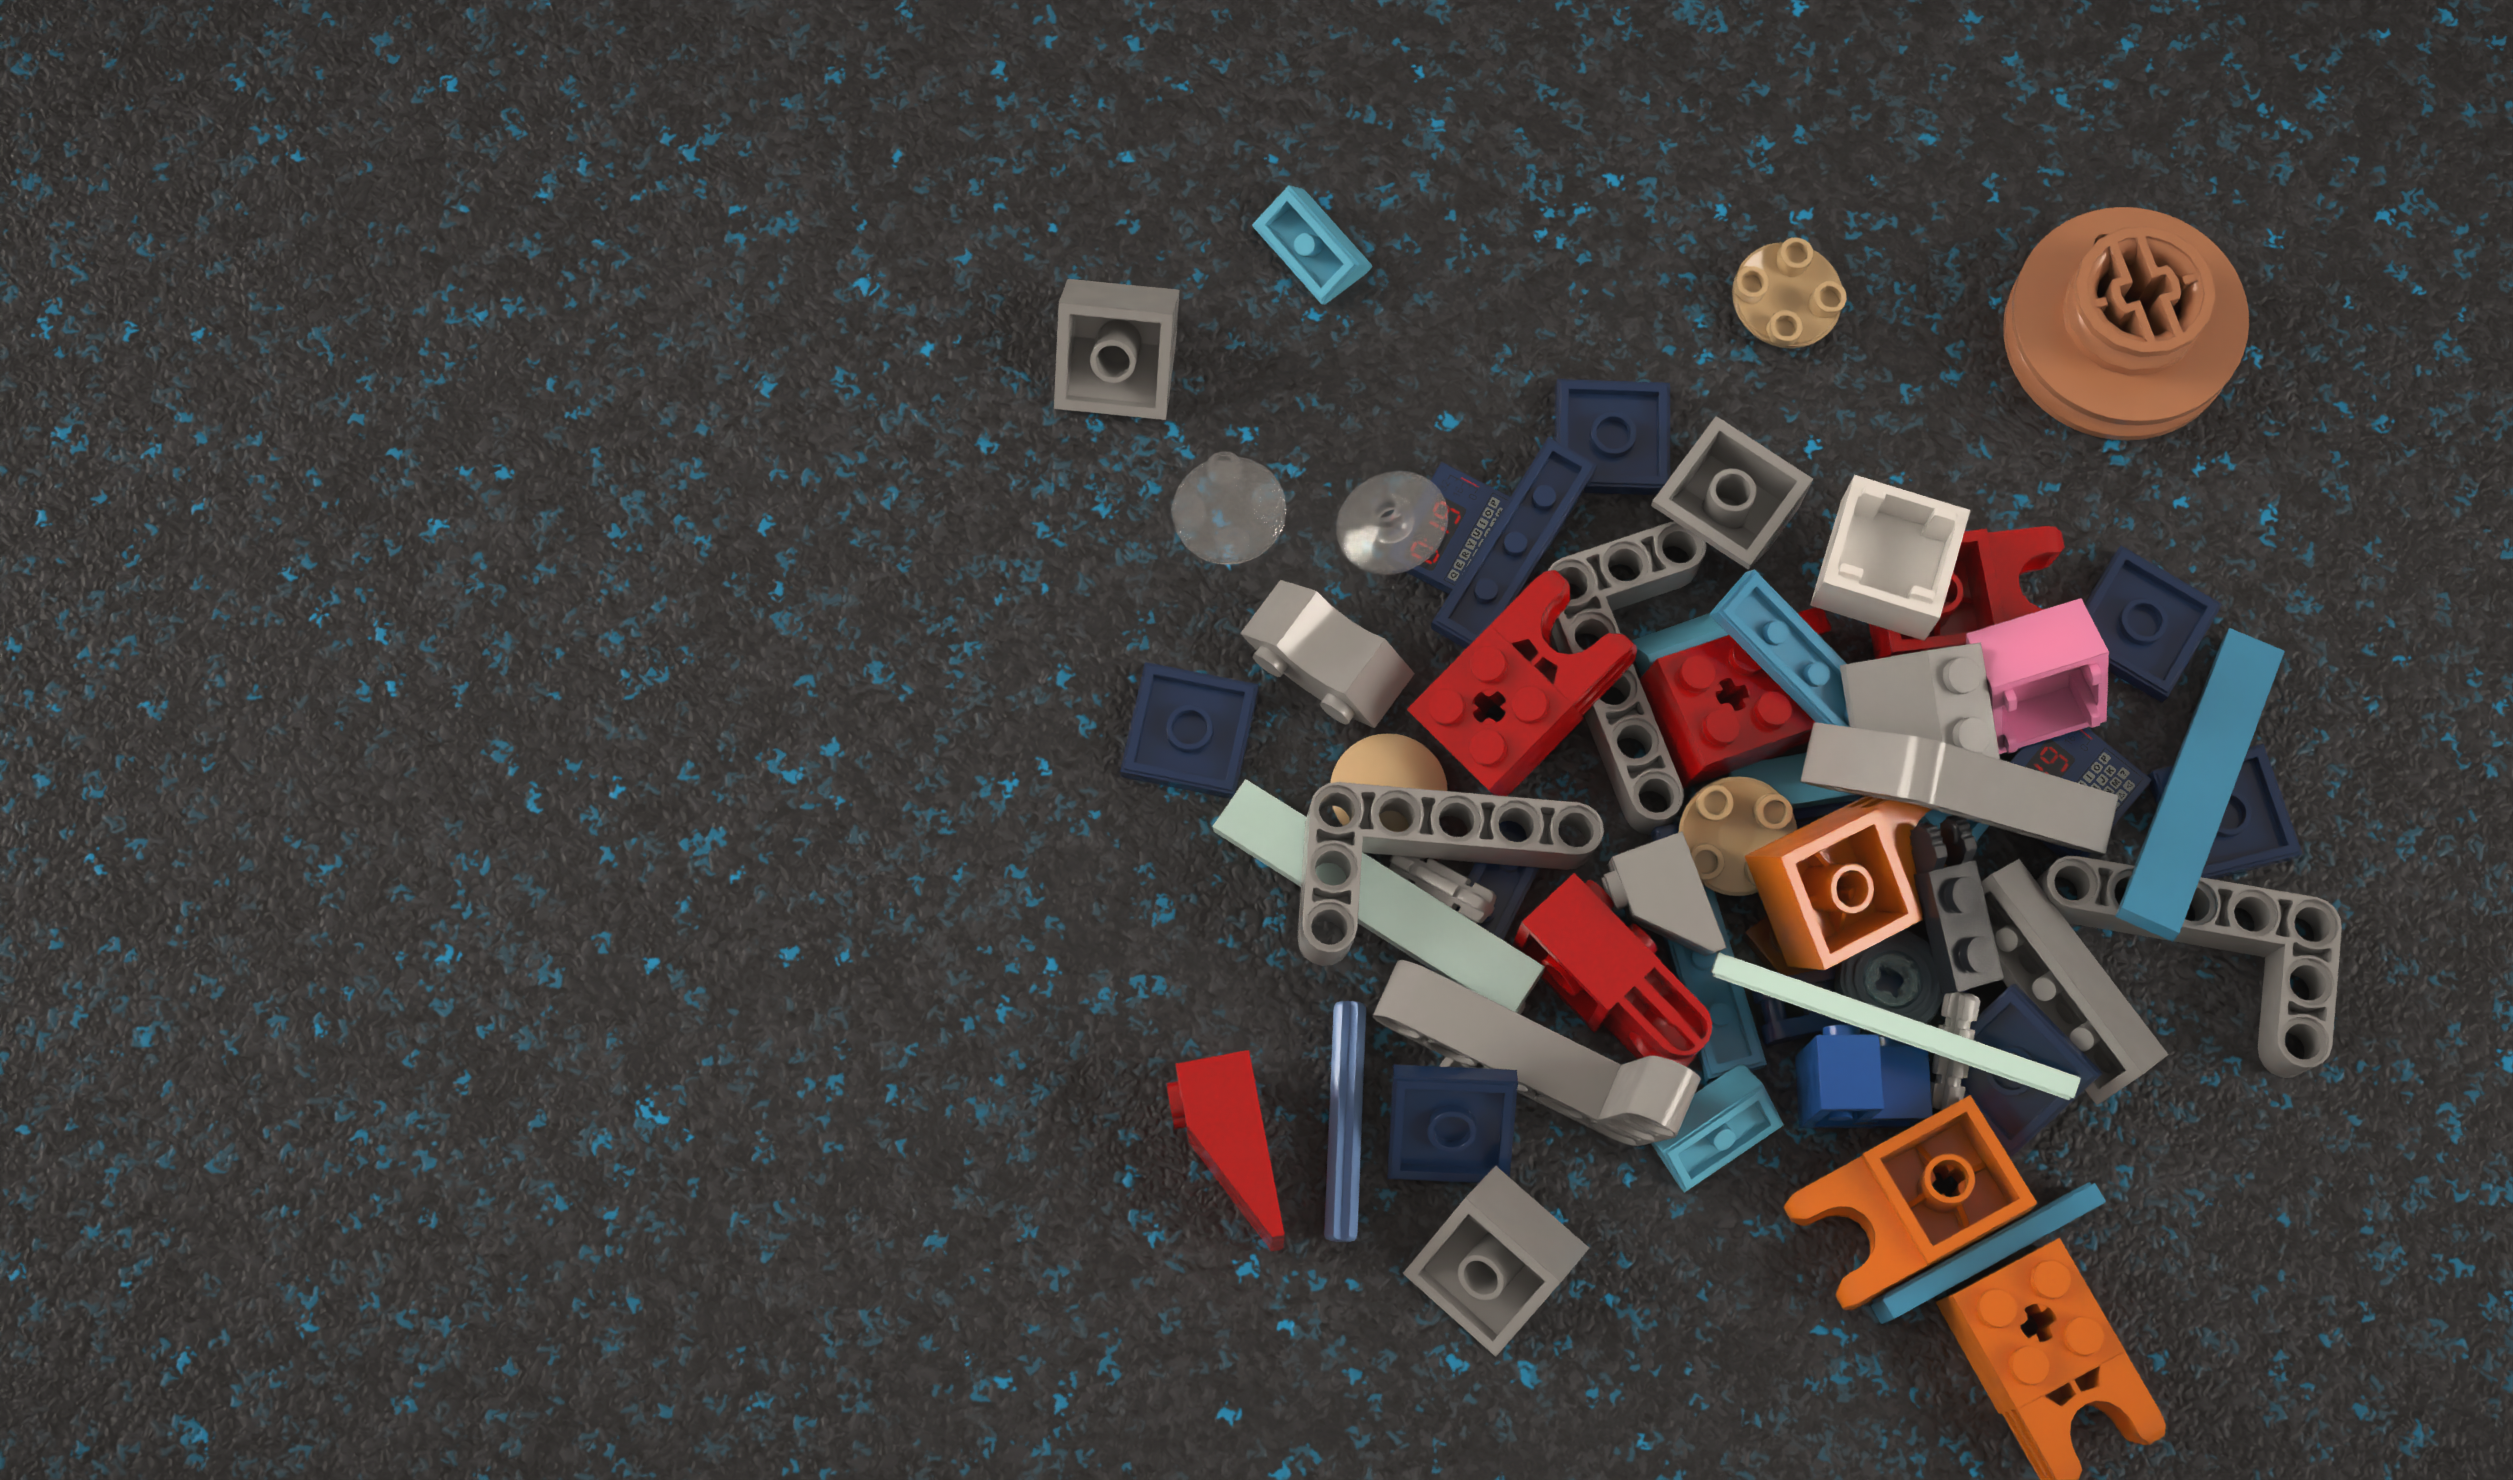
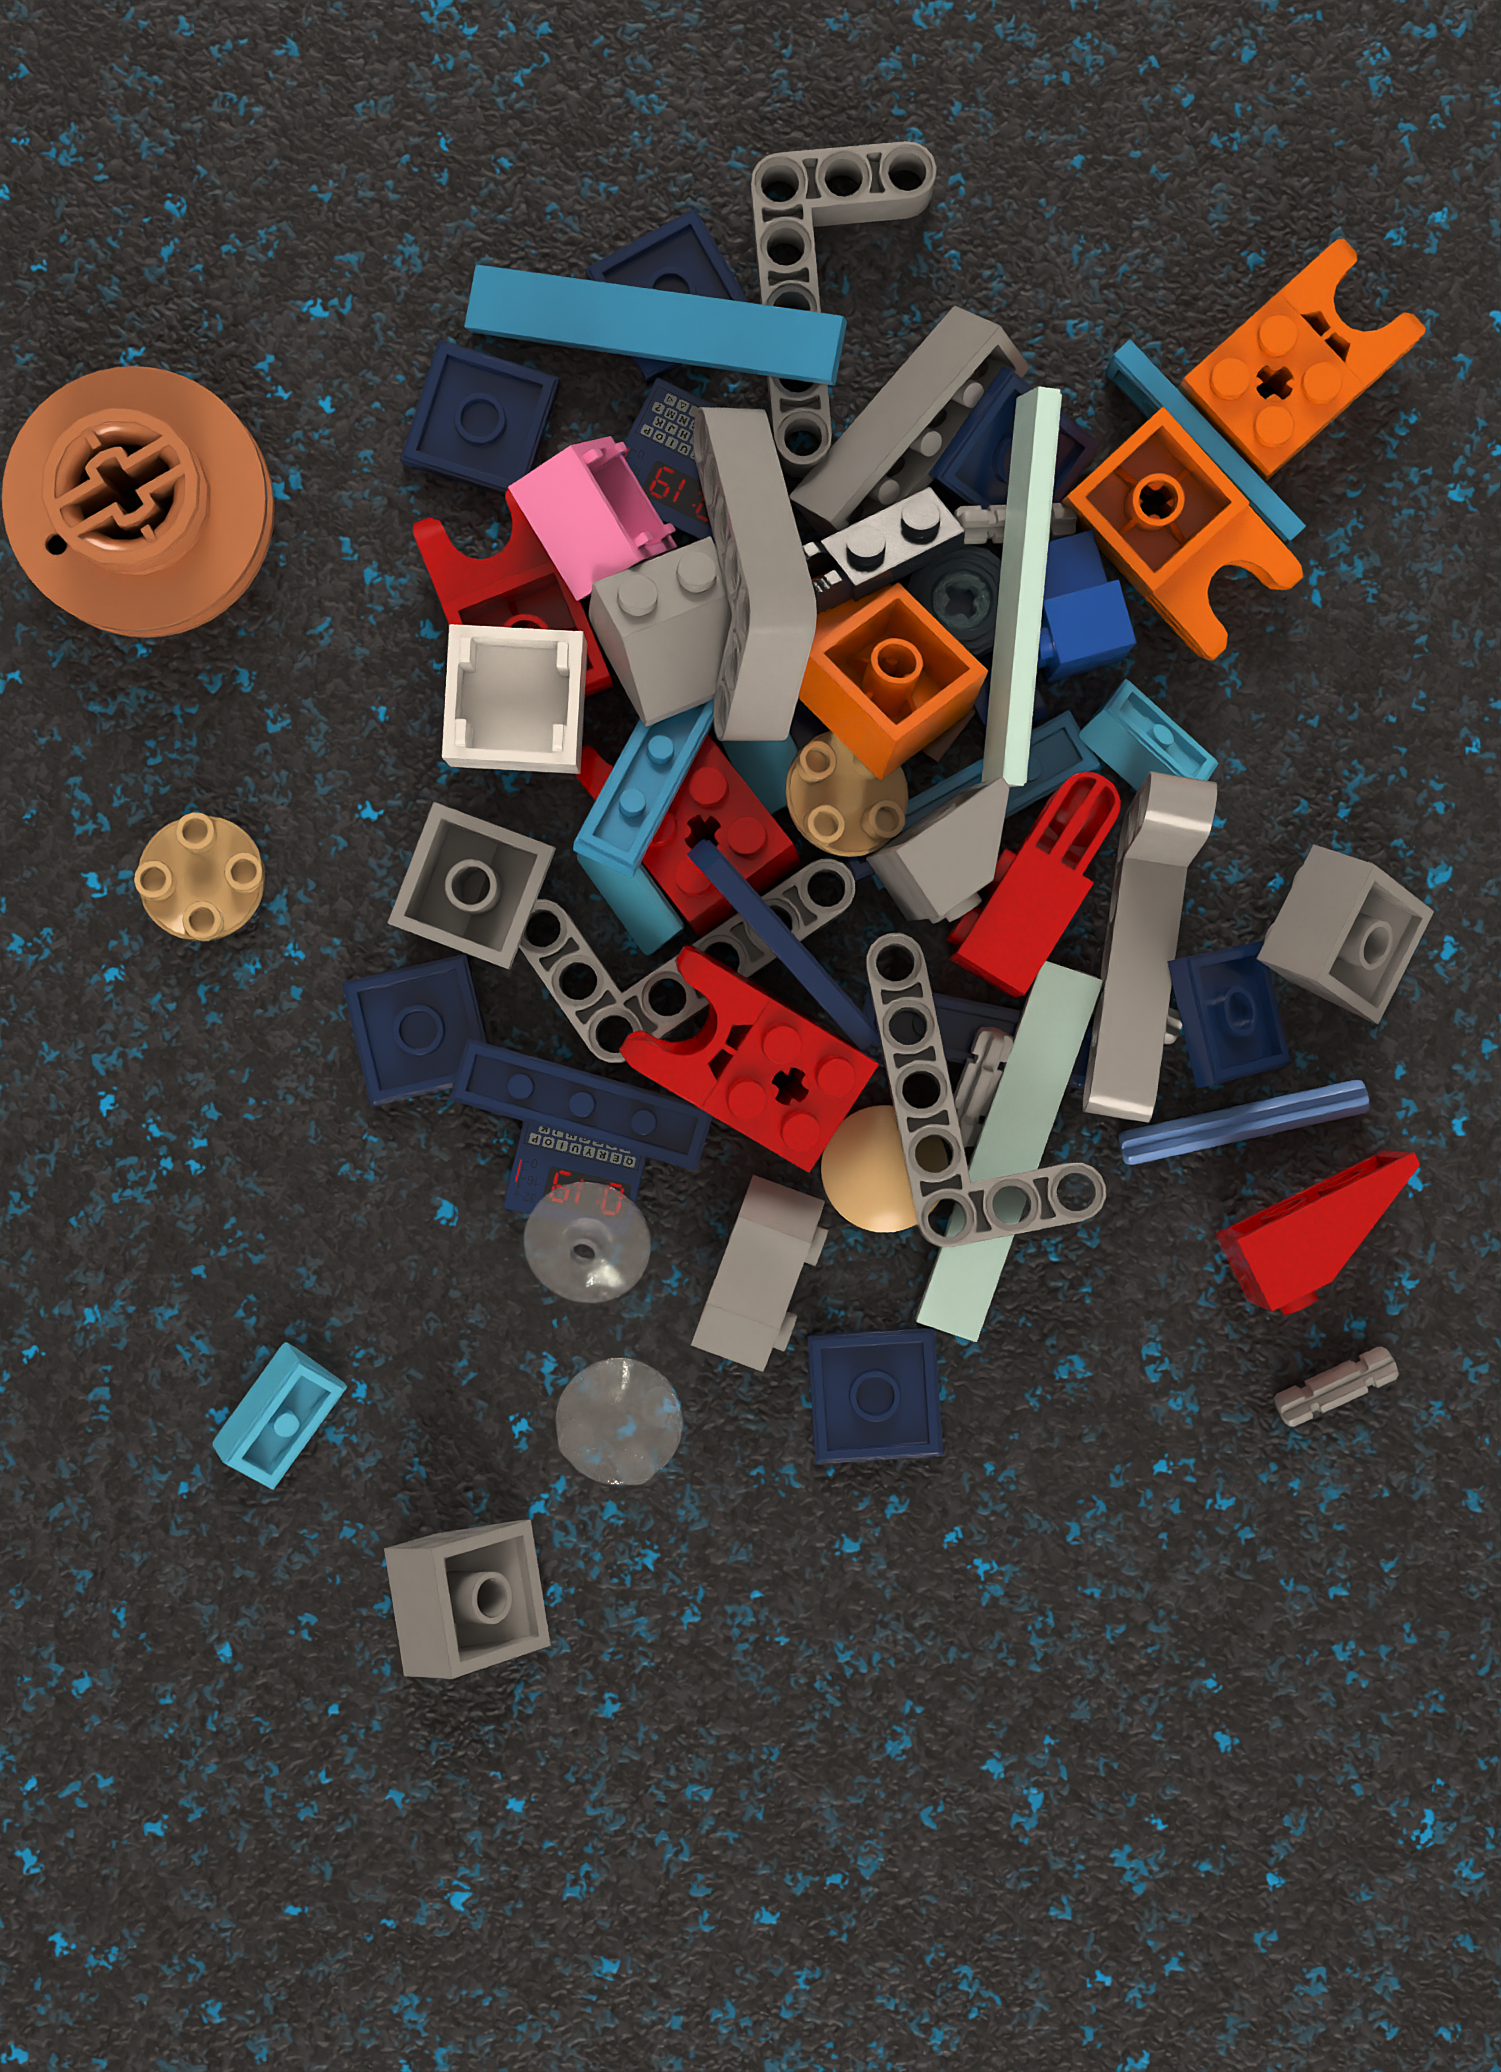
camera: 105 degrees left, 15 degrees up
(1079, 1138) = (1336, 1386): none -> light grey axle
(1619, 731) = (783, 943): none -> dark blue tile

